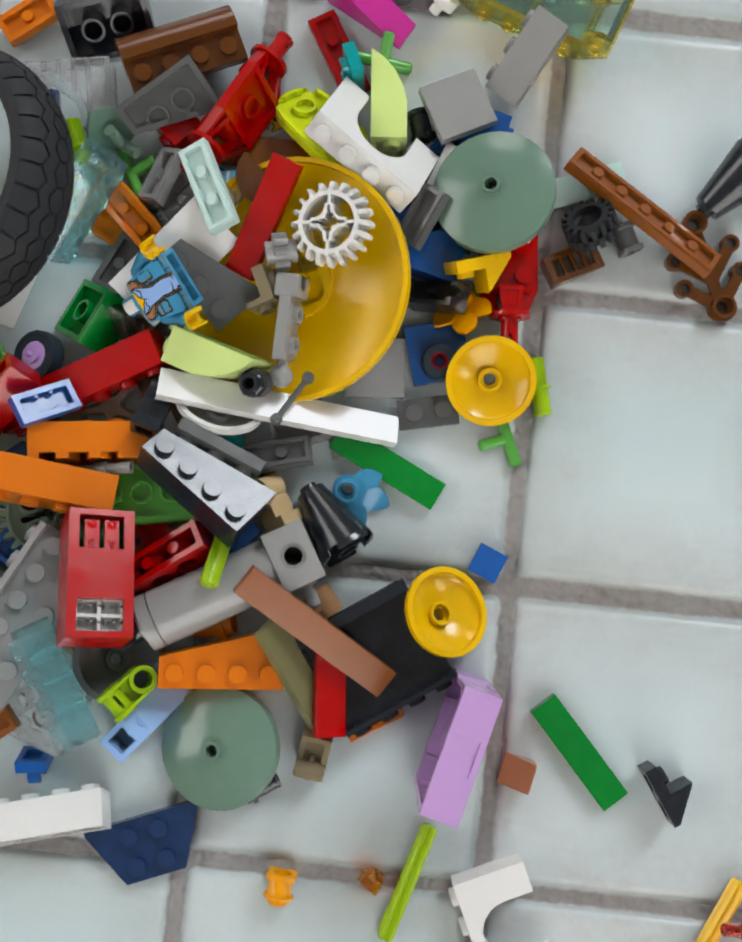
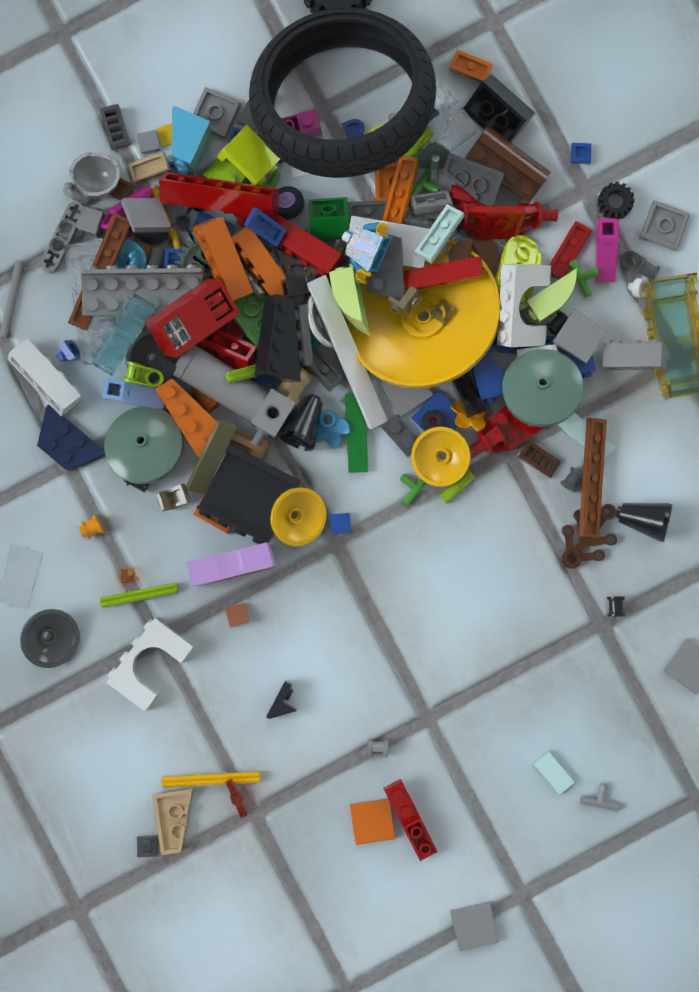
camera: 55 degrees right, 0 degrees up
(95, 178) = (408, 169): clear light blue brick -> none
(123, 323) = (335, 236): clear smoke tile -> none
(255, 383) = (351, 330): black plant -> none
(280, 251) = (430, 295): light grey gear -> none
(291, 291) = (412, 316): light grey plate -> none
(307, 378) = (373, 356): dark grey hinge -> none
(309, 221) = (455, 299): white gear -> none
(314, 630) = (241, 452): dark orange tile -> none
(328, 700) = (214, 482): red tile -> none
(351, 64) = (559, 264): teal plate -> none
(423, 215) = (504, 358): dark grey tile -> none
(483, 268) = (500, 411): yellow slope -> none
(578, 752) = (271, 642): green tile -> none
(590, 225) = (565, 453): black tyre -> none

